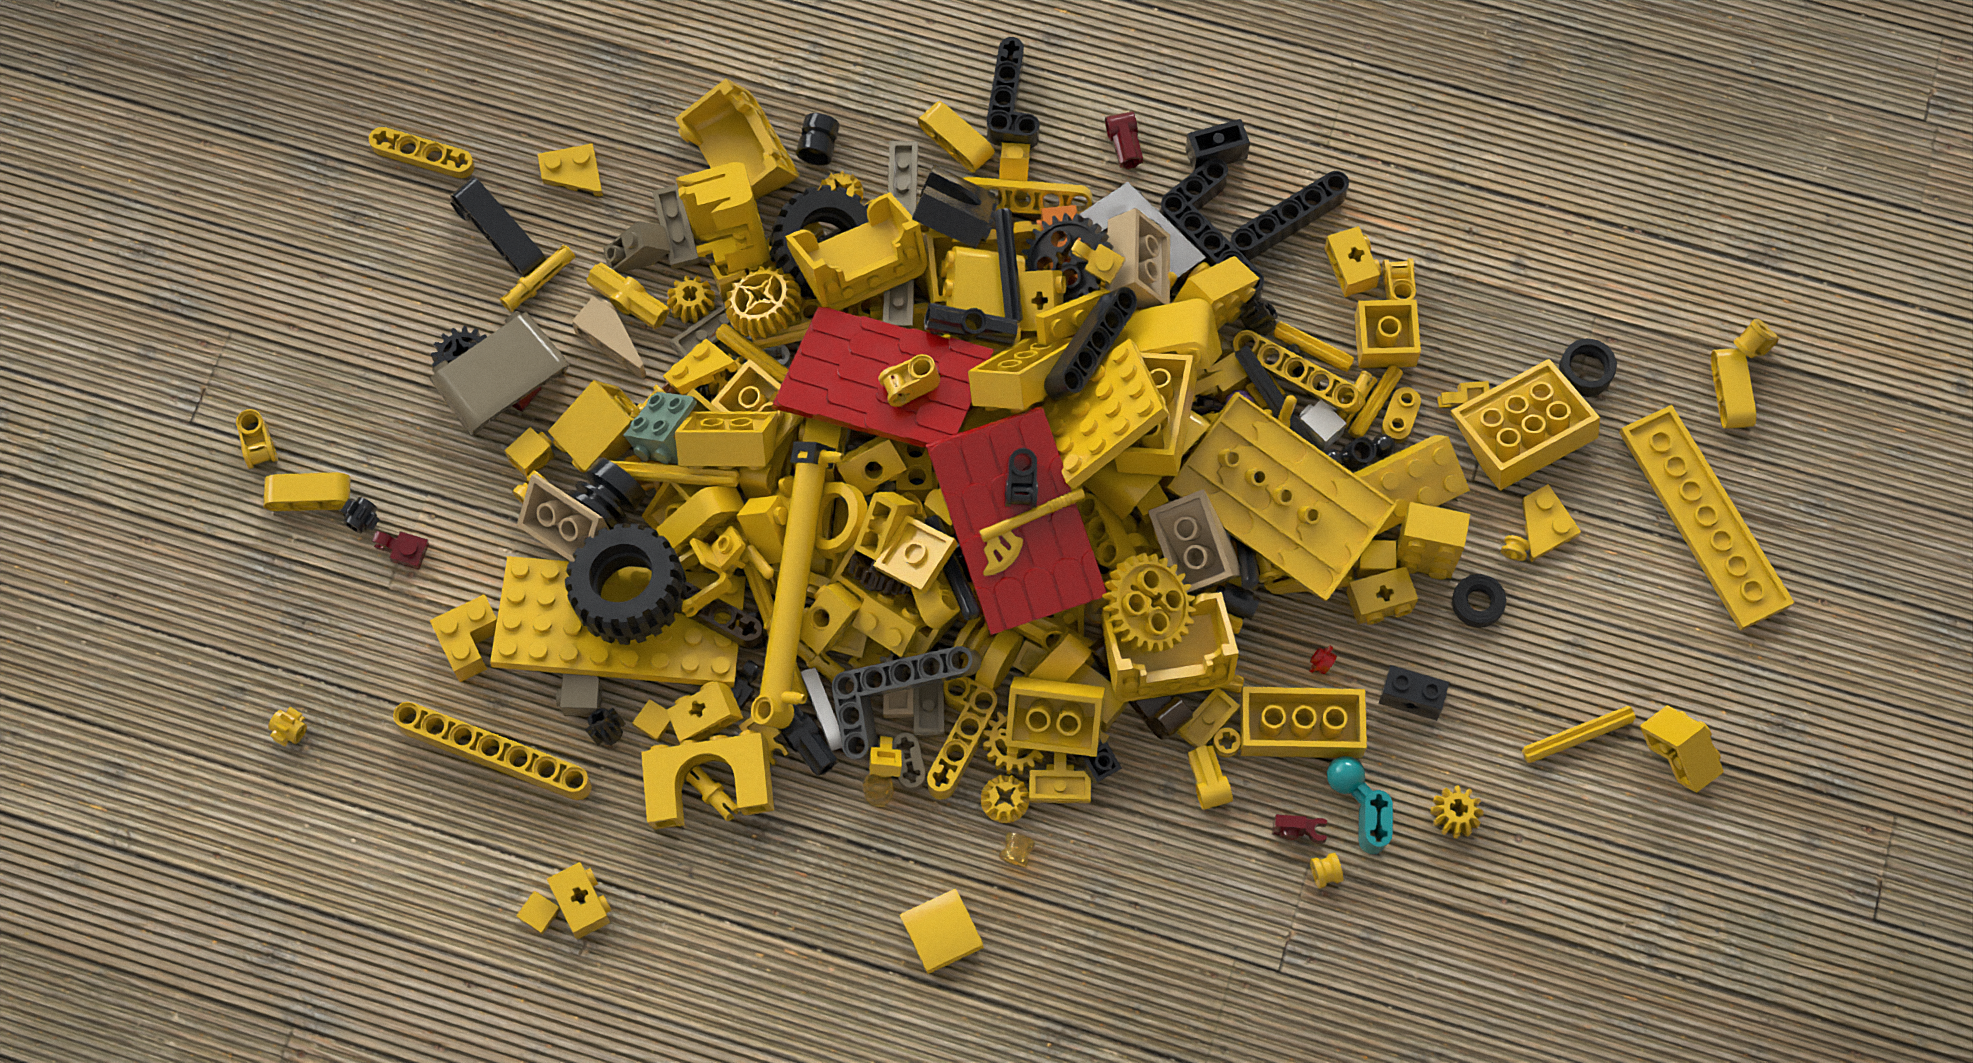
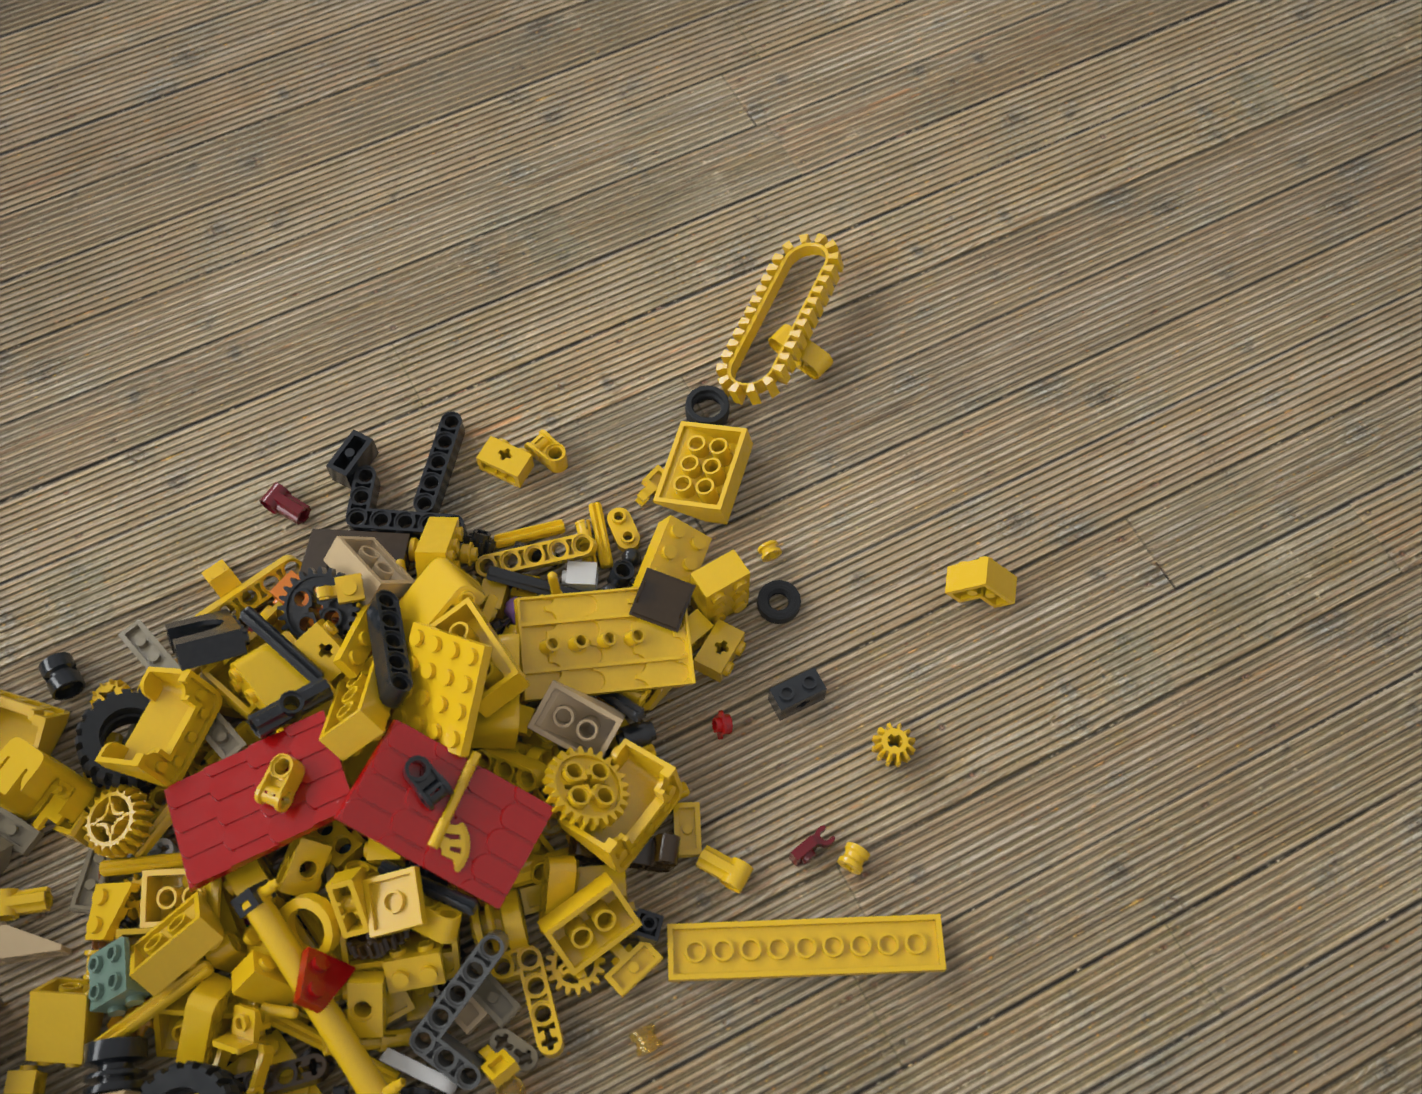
camera: 45 degrees left, 5 degrees down
(691, 289) = (63, 855): yellow gear -> none
(809, 563) = (319, 979): none -> red wing
(956, 136) = (164, 595): yellow beam -> none
(1003, 812) = (613, 1021): yellow gear -> none
(1008, 91) = (174, 537): black beam -> none
(1216, 903) = (805, 948): none -> yellow plate
(1233, 735) = (720, 833): yellow bush -> none
(1240, 319) = (468, 554): none -> yellow plate
(1302, 722) = (749, 776): yellow brick -> none
(1347, 777) = (809, 785): teal beam -> none
(1363, 503) = (662, 600): none -> dark brown piece
(1387, 333) = (569, 486): yellow brick -> none
(1547, 522) = (771, 519): yellow wing -> none
(1578, 734) = (914, 631): yellow axle -> none
(1706, 518) = (858, 438): yellow plate -> none
(1751, 364) = (800, 330): none -> yellow piece
(1756, 339) = (786, 311): yellow piece -> none

